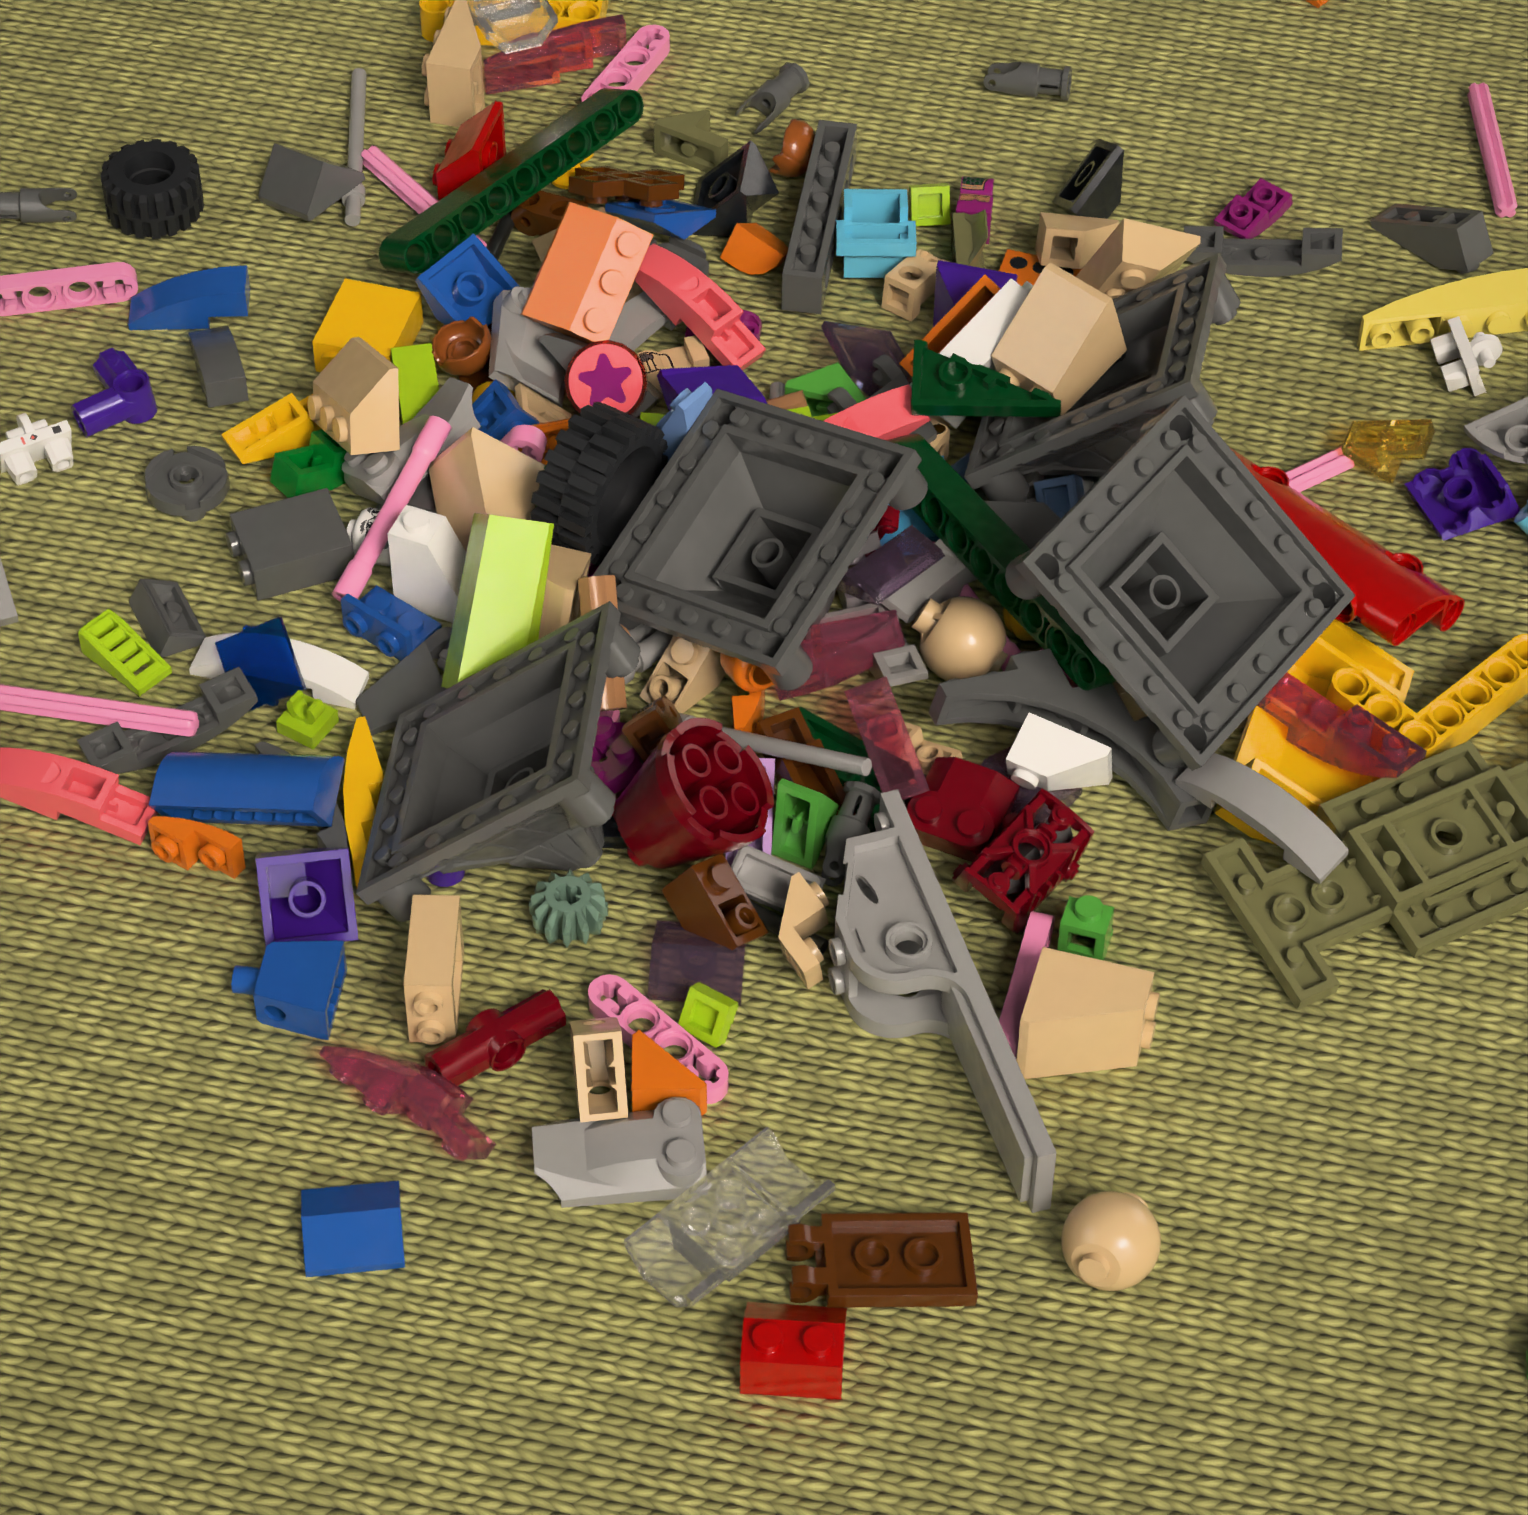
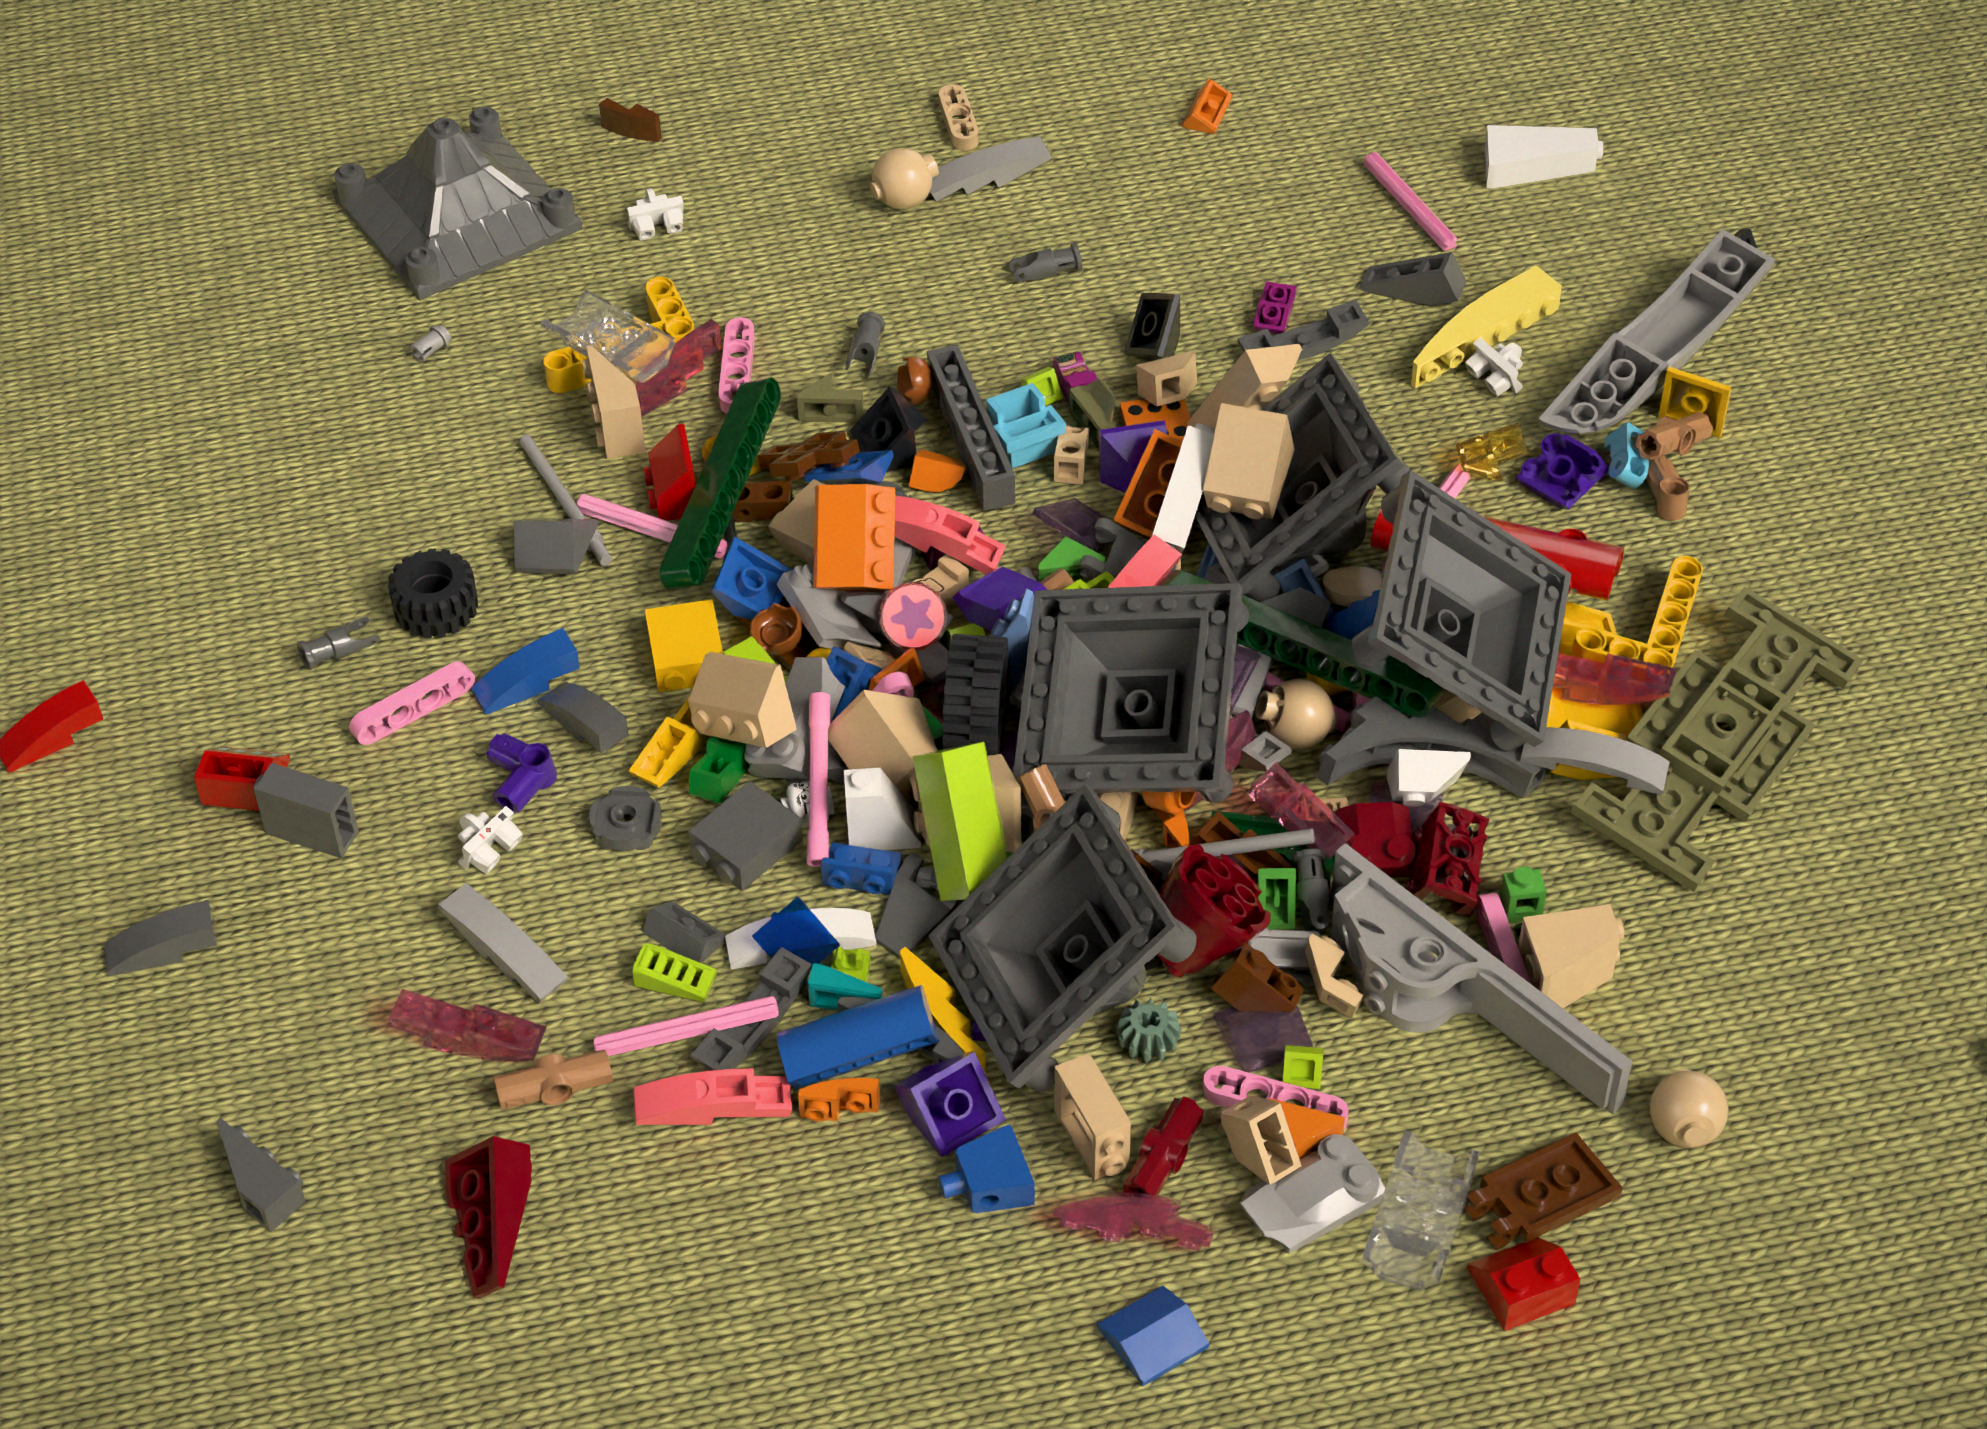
camera: 25 degrees left, 0 degrees up
(264, 723) = (829, 985): none -> teal slope
(964, 389) = (1196, 524): dark green wing -> none

